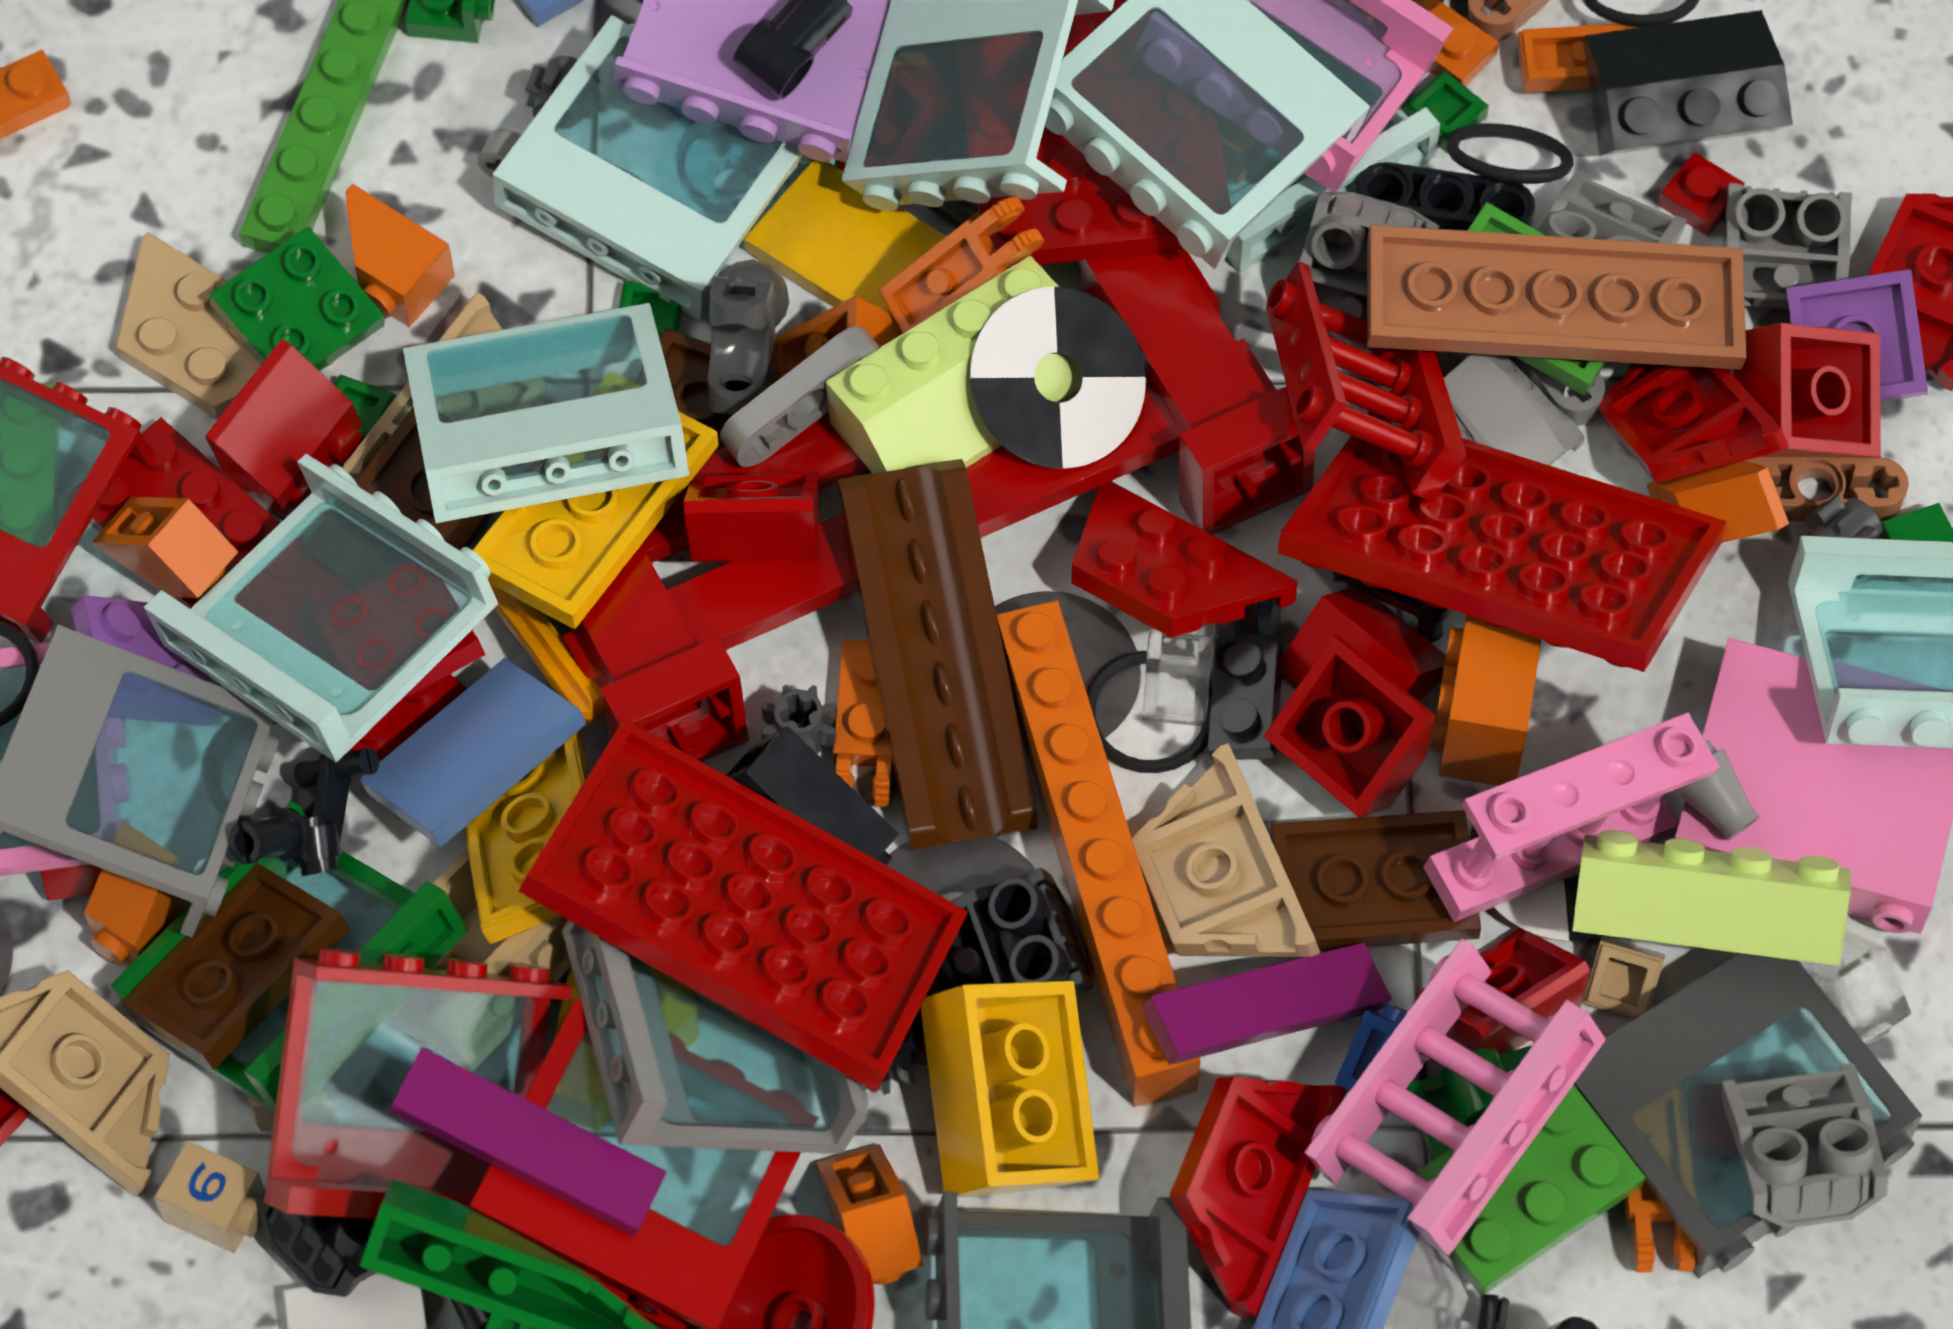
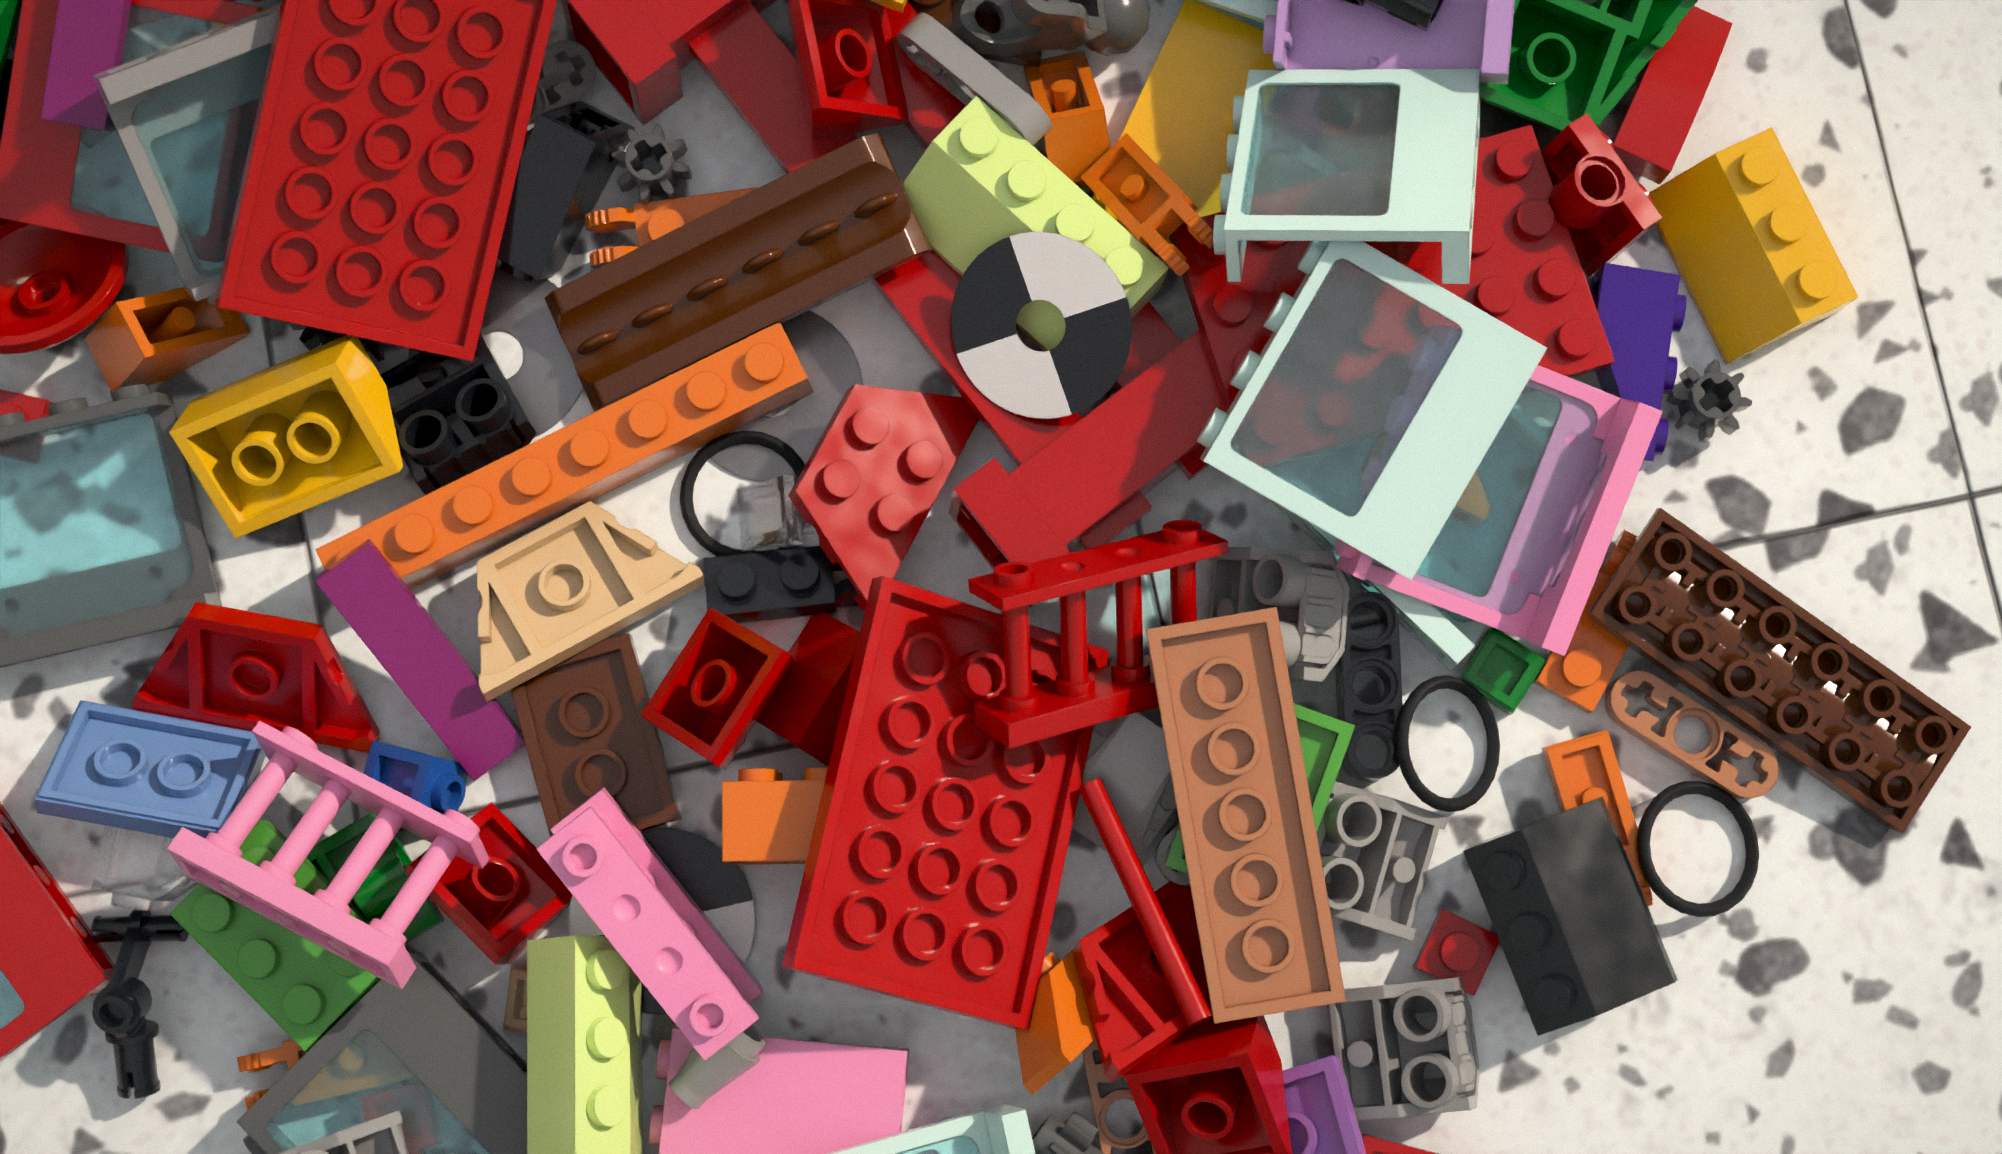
camera: 80 degrees right, 20 degrees up
(1620, 404) = (1145, 902): none -> red bar

